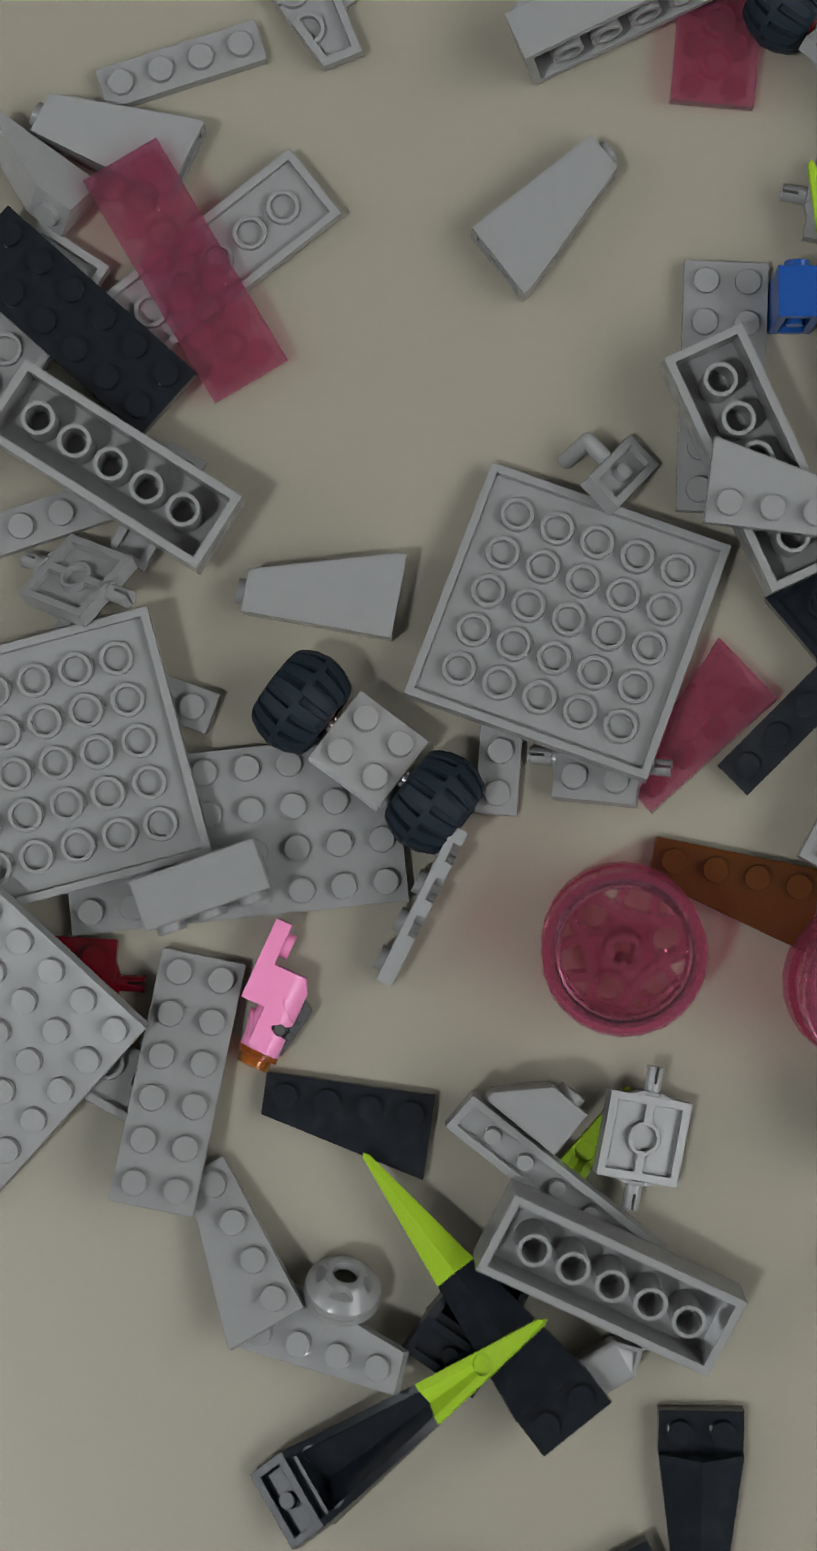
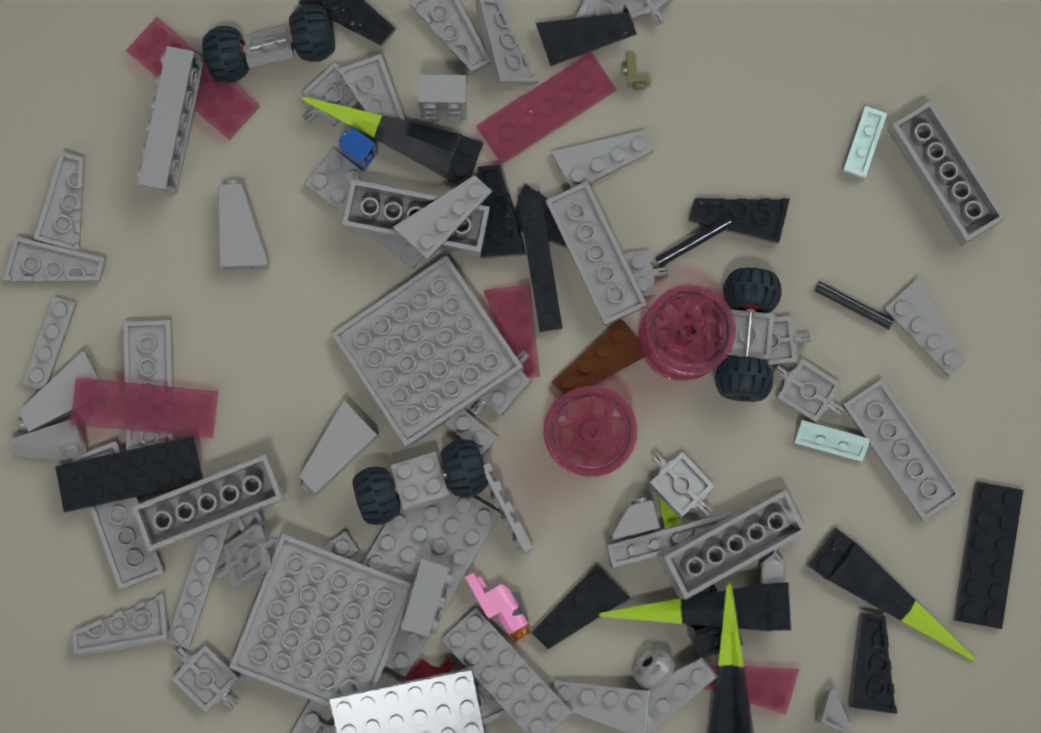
camera: 60 degrees left, 5 degrees down
(438, 1474) = (766, 686): none -> clear pink wing
(617, 473) = (376, 280): light grey plate -> none

